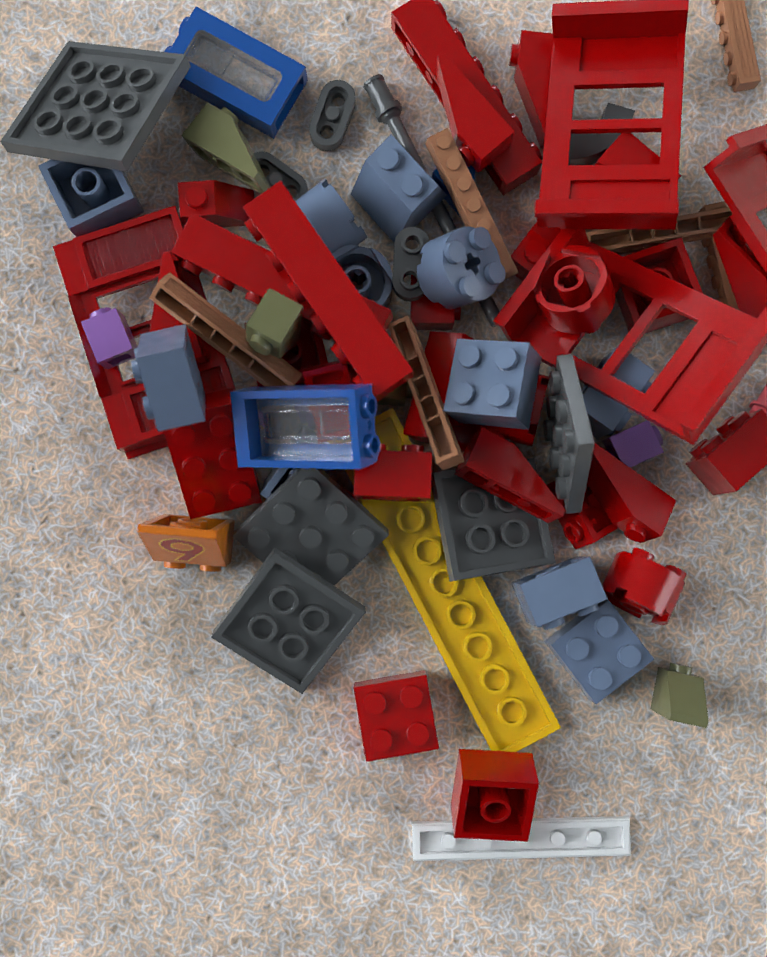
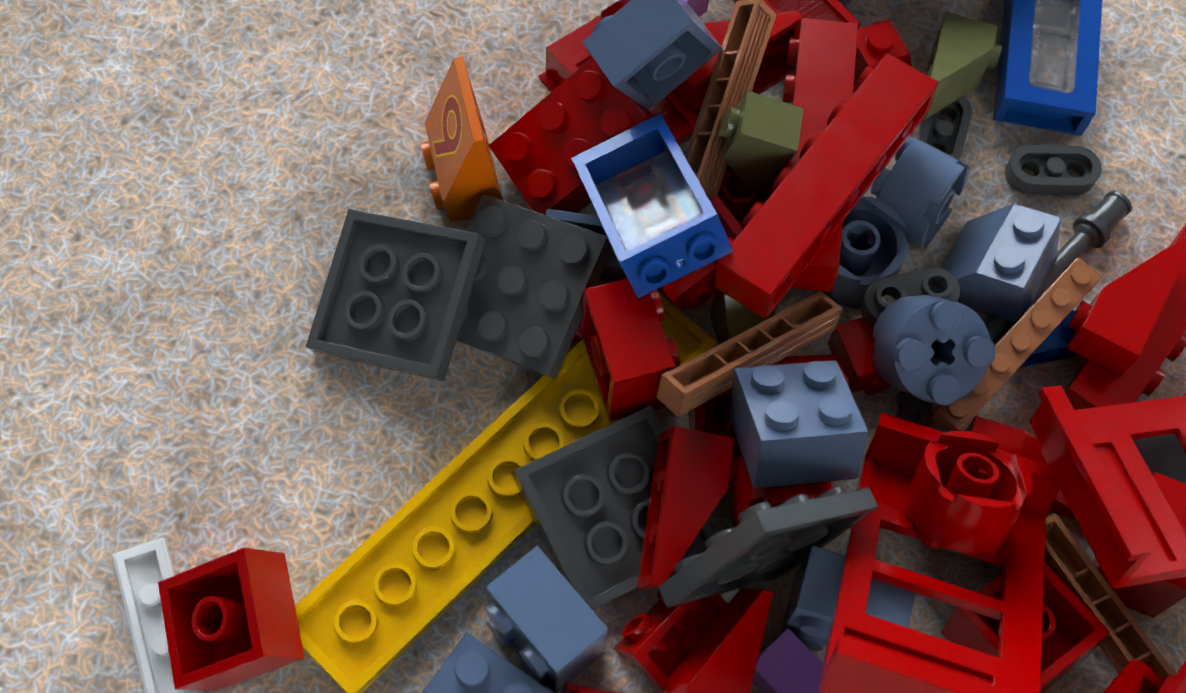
camera: 70 degrees right, 20 degrees down
(395, 715) = (309, 466): red brick -> none

